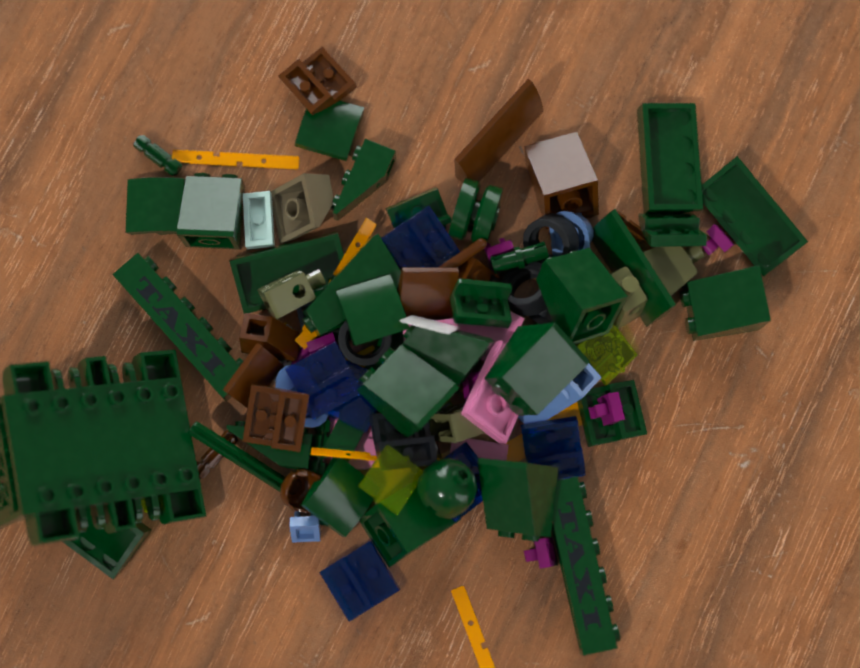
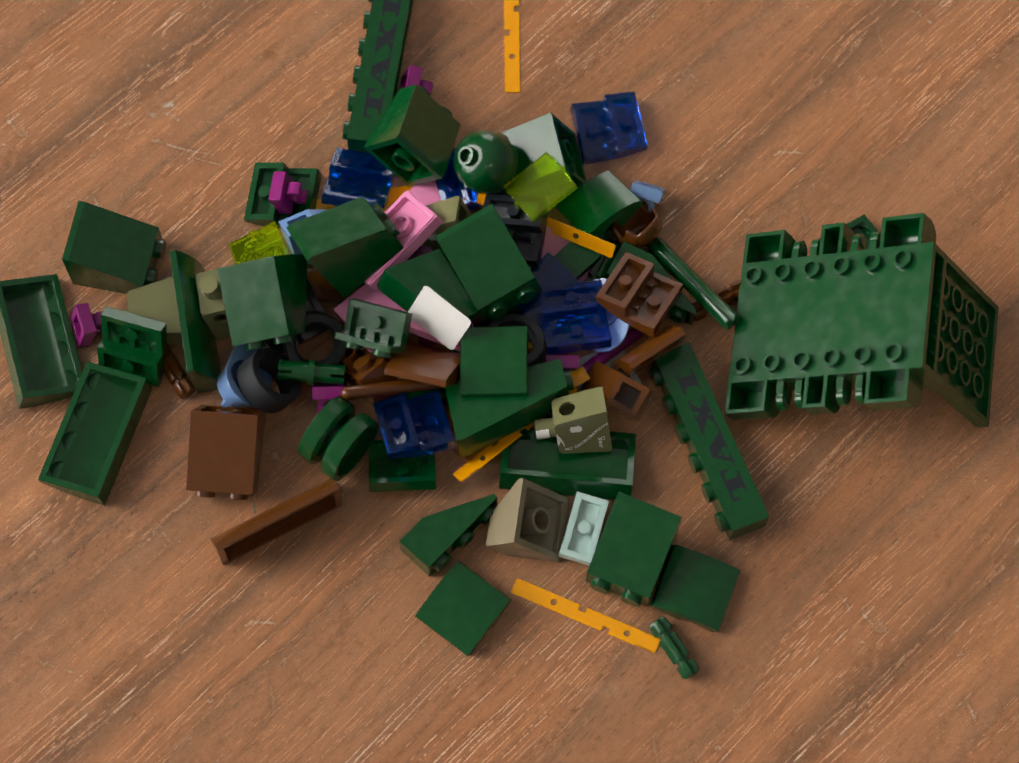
camera: 160 degrees left, 10 degrees down
(317, 81) = (457, 663): reddish brown slope -> none

